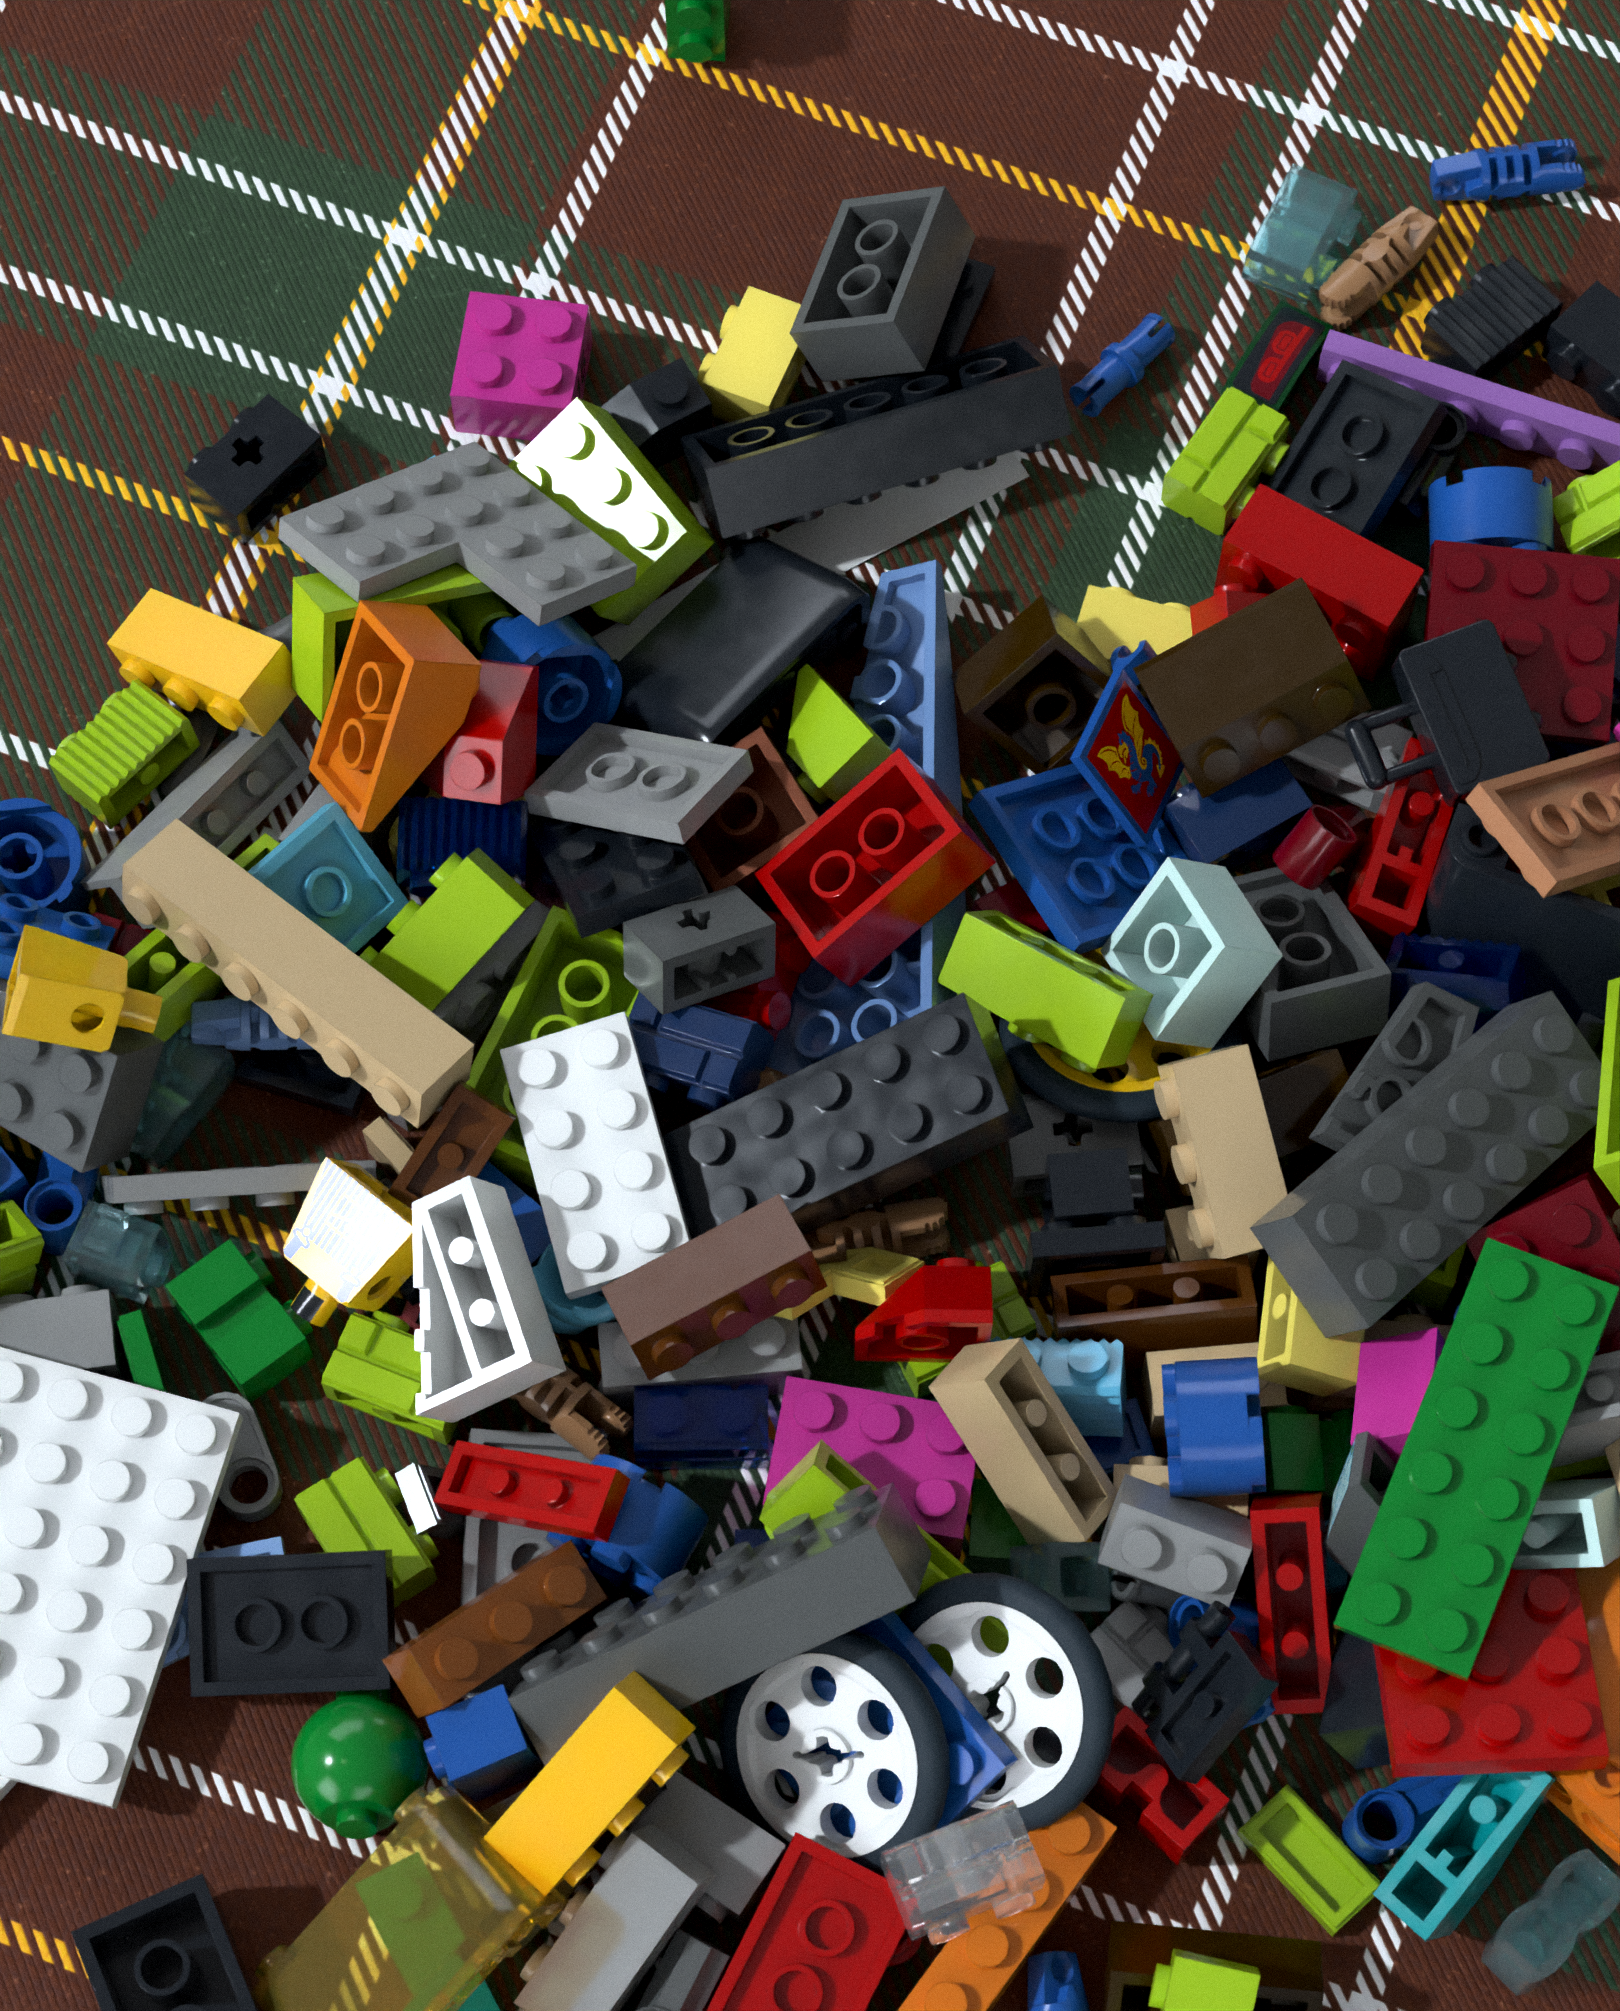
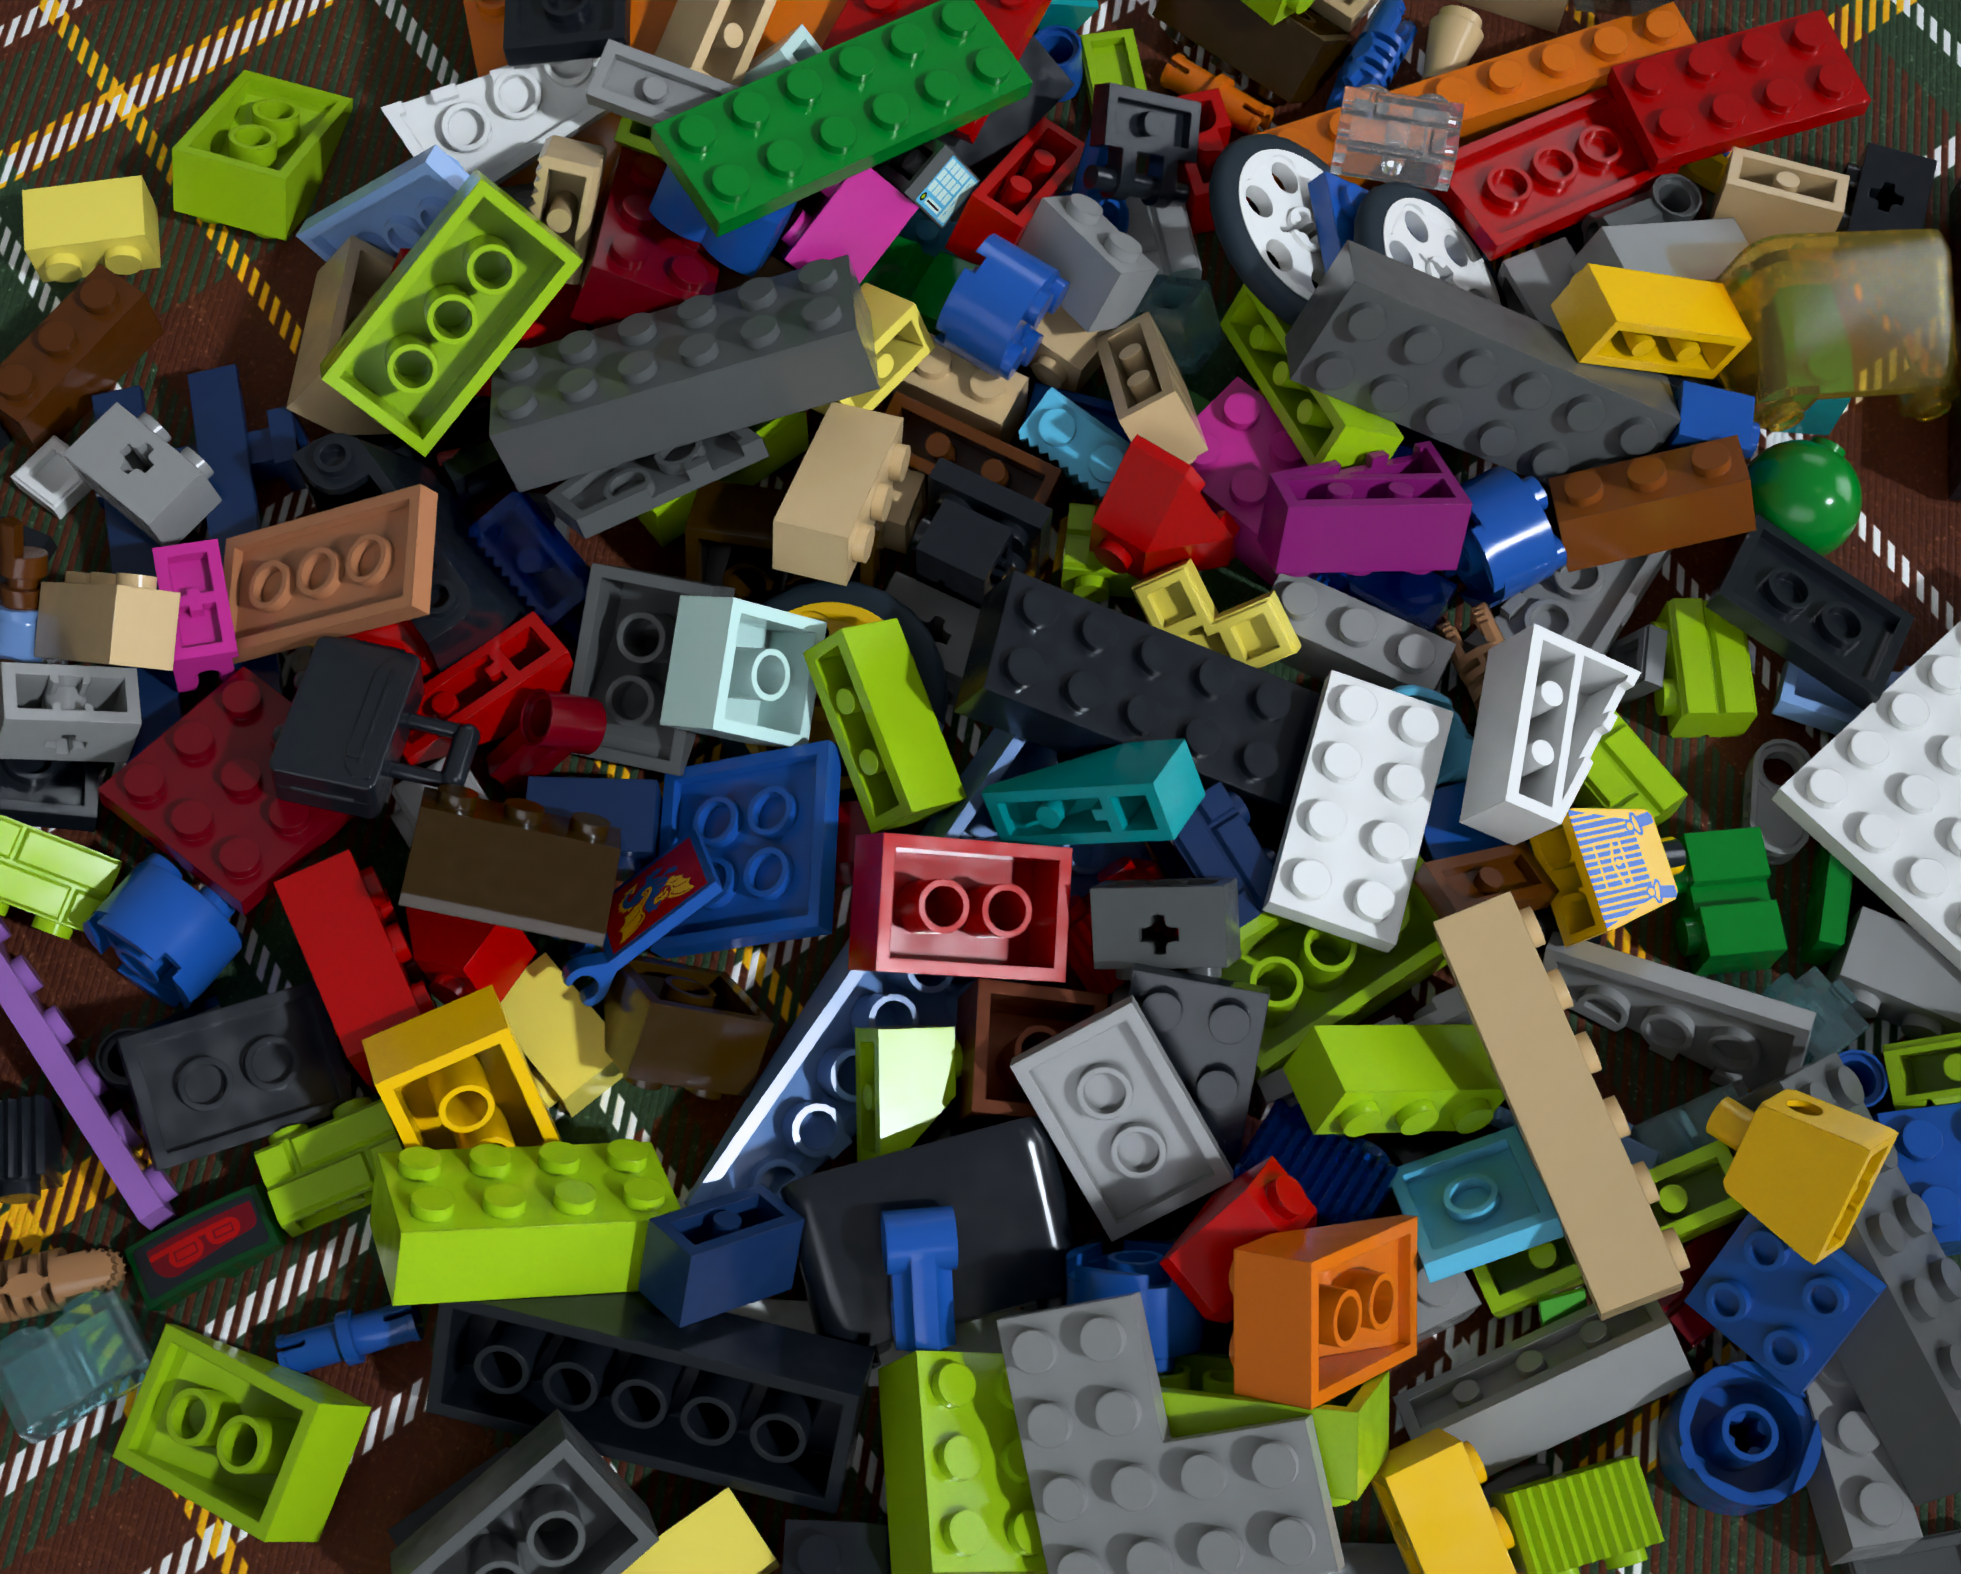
camera: 150 degrees left, 0 degrees up
(532, 1490) = (1567, 572): red plate -> none
(714, 1287) = (1332, 626): reddish brown brick -> none
(724, 595) = (920, 1257): none -> blue piece
(747, 1417) = (1365, 517): none -> magenta wedge
(808, 1014) = (1102, 797): none -> teal slope
(878, 518) = (720, 1254): none -> dark blue brick
(1041, 461) = (515, 1219): none -> lime brick
(1139, 252) = (242, 1436): none -> lime slope
(1146, 516) = (459, 1078): none -> yellow brick
(1195, 1899) = (1243, 110): none -> orange pin

